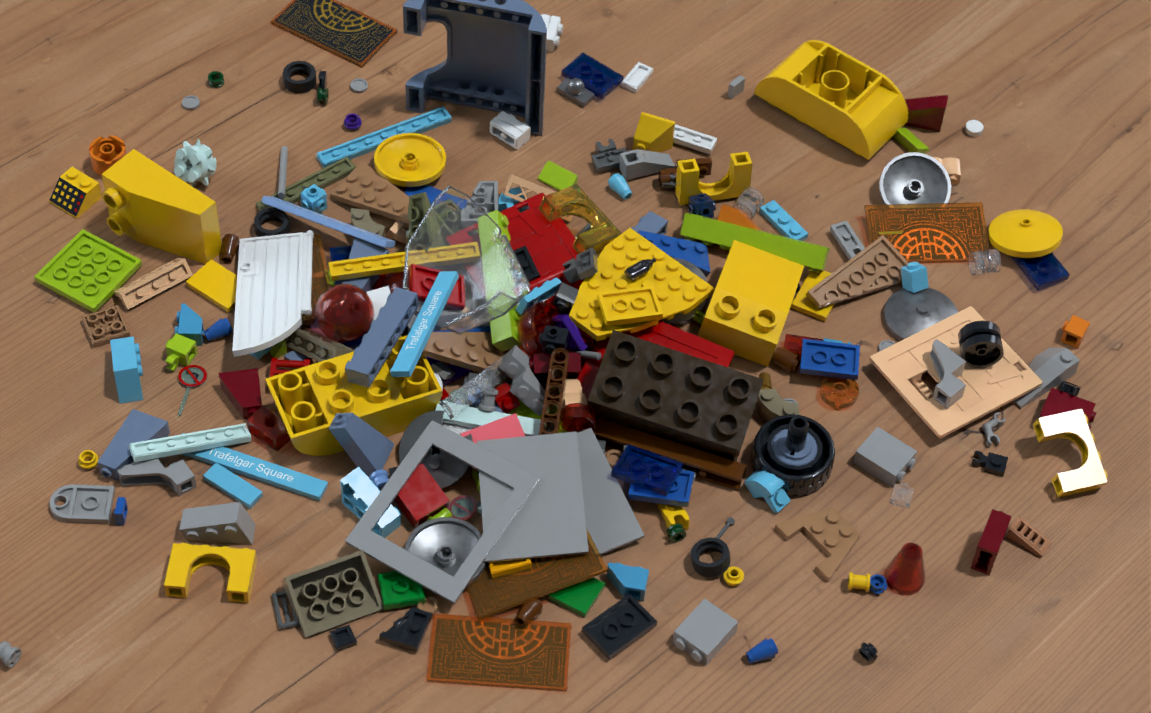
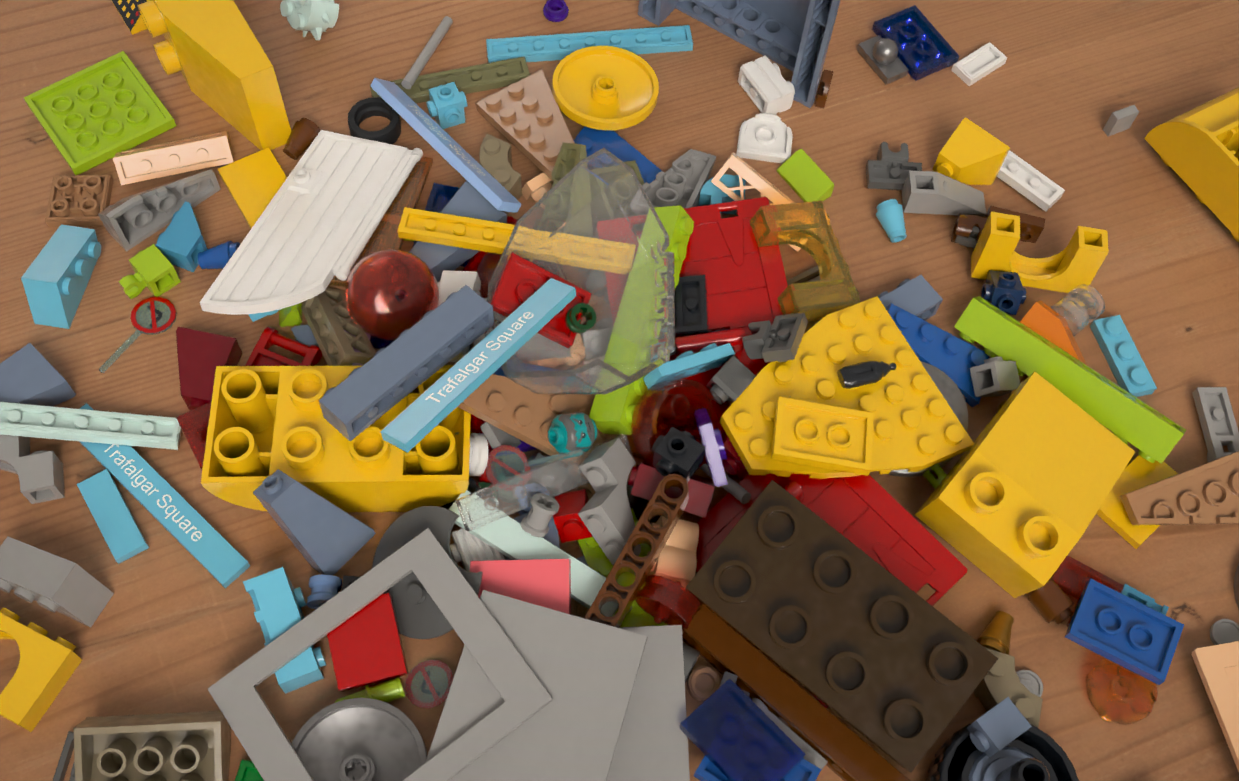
camera: 20 degrees right, 10 degrees up
(156, 319) = (147, 212): none -> light grey wedge
(456, 379) = (510, 461): none -> clear light blue piece
(463, 294) = (575, 325): none -> dark green bush
(487, 352) = (572, 432): none -> head
(522, 162) = (765, 139): none -> white tile
(547, 121) = (823, 88): none -> reddish brown tile
(713, 254) = (994, 377): none -> light grey brick
(777, 417) = (998, 727): none -> sand blue brick

